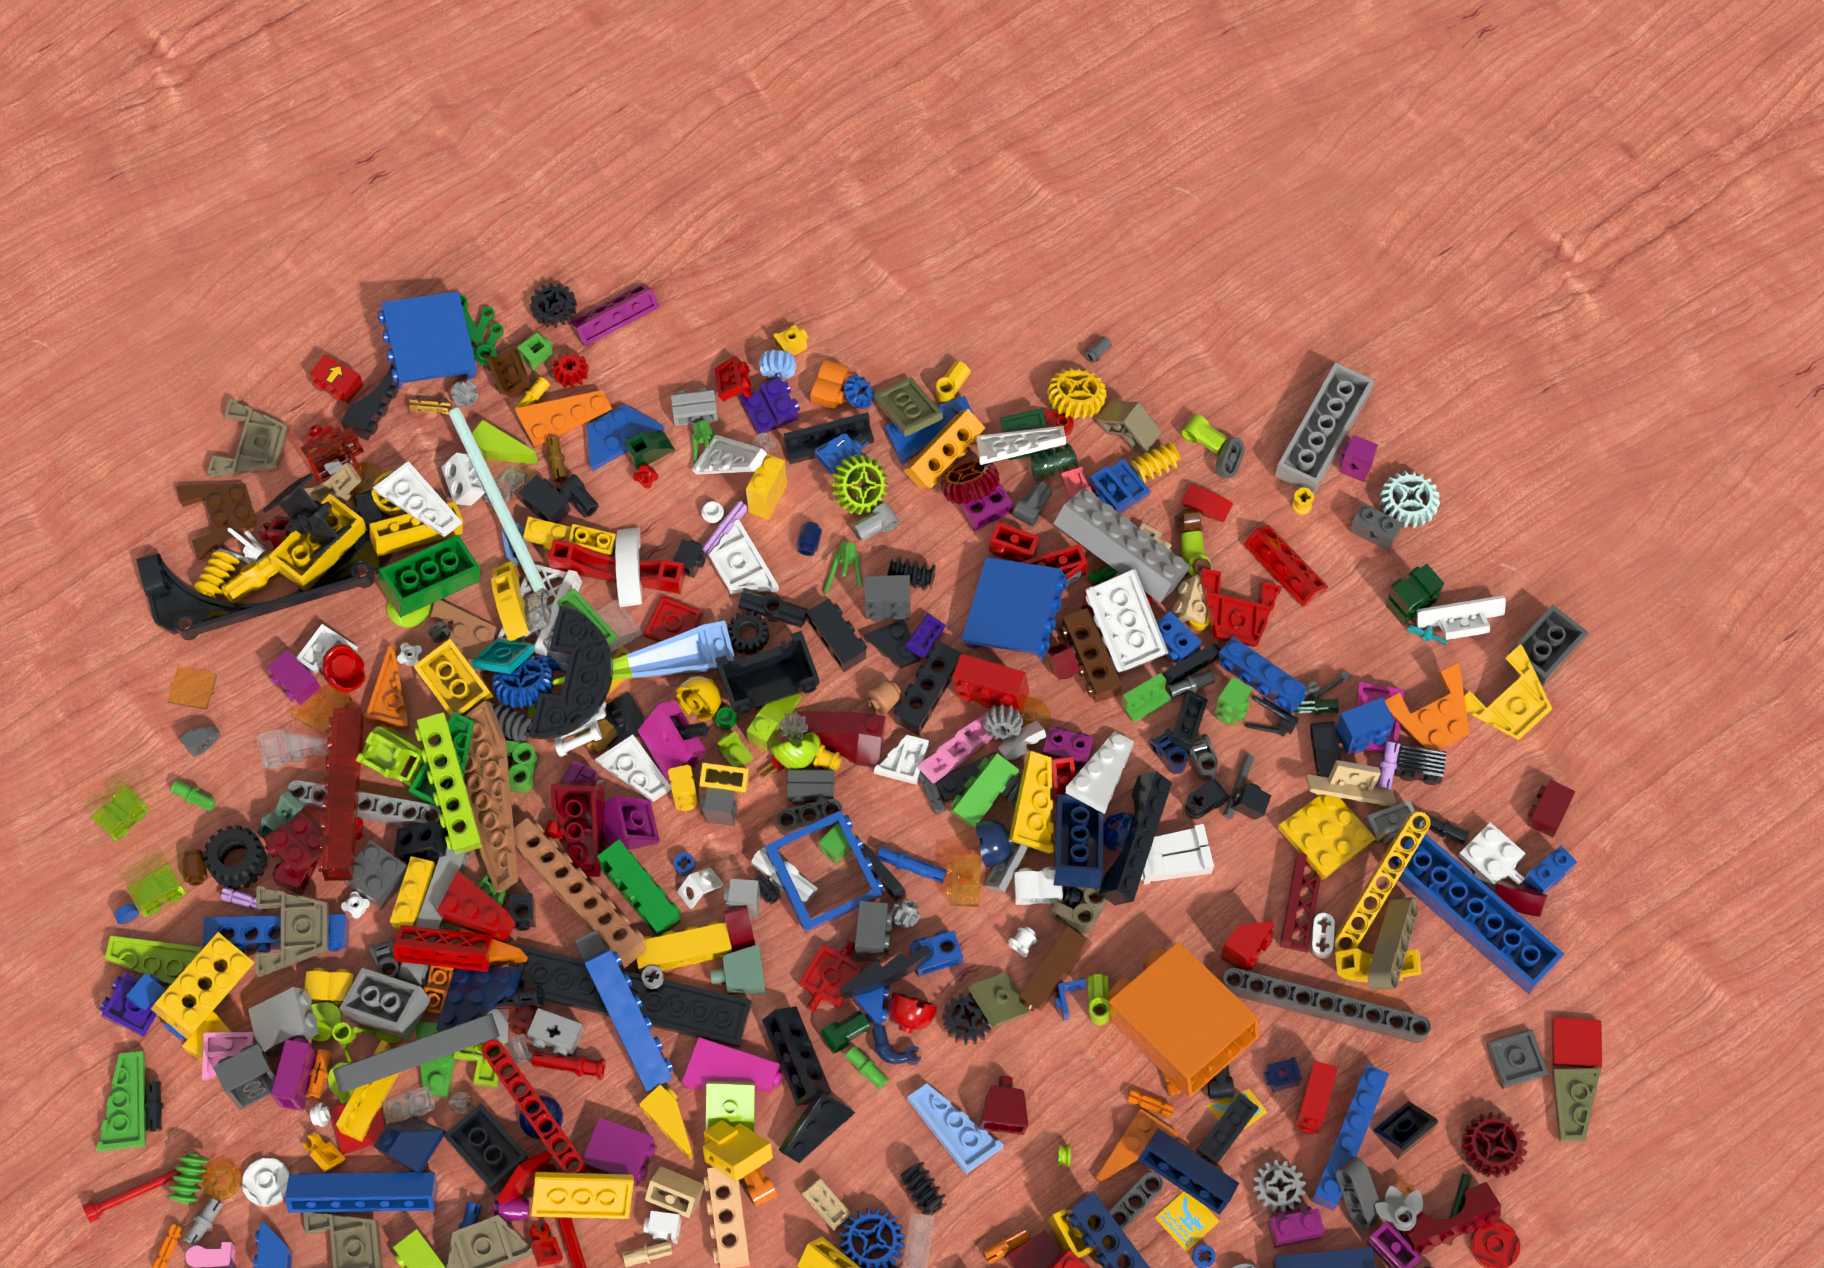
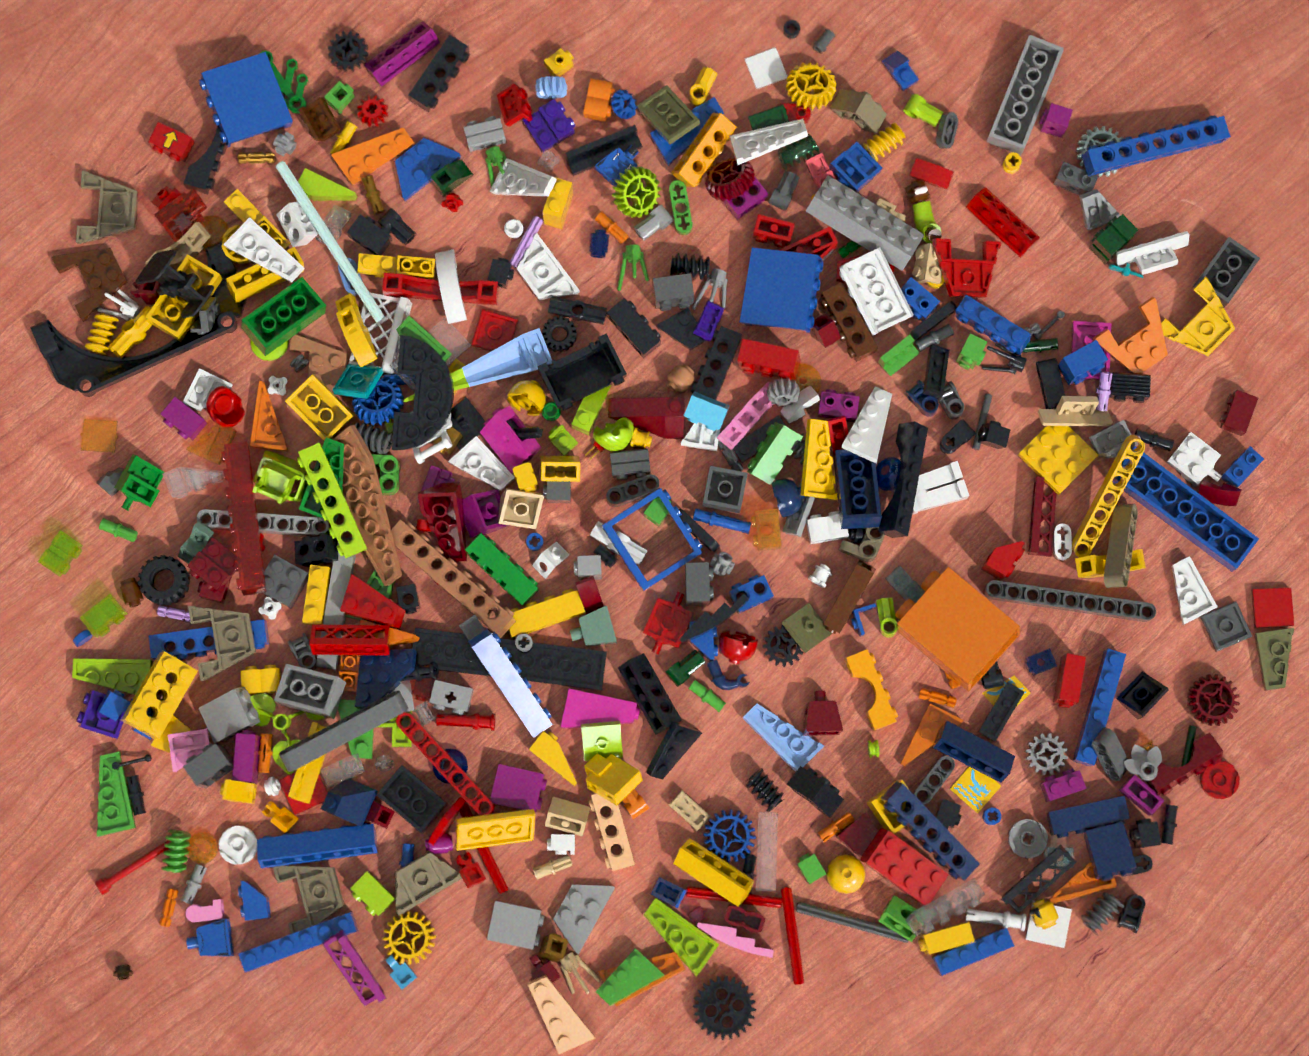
camera: 10 degrees left, 15 degrees up
(136, 1066) = (116, 765): none -> black hinge
(227, 742) = (139, 482): none -> green plate
(277, 1112) = (238, 791): none -> yellow slope
(340, 564) = (207, 317): none -> dark grey bracket
(402, 452) = (244, 209): none -> yellow slope
(444, 1162) = (380, 815): none -> dark red brick
(537, 611) = (380, 338): clear slope -> none
(669, 313) = (451, 48): none -> black brick
(672, 820) = (520, 508): none -> tan slope
(793, 726) = (609, 409): clear gear -> none
(826, 522) = (611, 227): none -> orange axle
(905, 518) = (673, 195): none -> bright green beam
(908, 733) = (706, 411): none -> medium azure brick
(919, 827) = (724, 489): none -> dark grey brick
(940, 592) = (717, 279): none -> light grey plant
(986, 1196) = (816, 790): none -> black brick
(1028, 372) = (766, 68): none -> white sticker
(1061, 1055) = (862, 666): none -> light orange arch
(1068, 333) = (787, 32): none -> black bush
(1123, 962) = (904, 585): none -> clear light blue slope
(1149, 1244) = (948, 813): none -> black brick
(1182, 388) = (900, 70): none -> blue slope
(1396, 559) = (1096, 209): none -> light grey wing
(1400, 508) = (1214, 125): none -> blue brick
(1477, 1012) = (1191, 591): none -> white wing

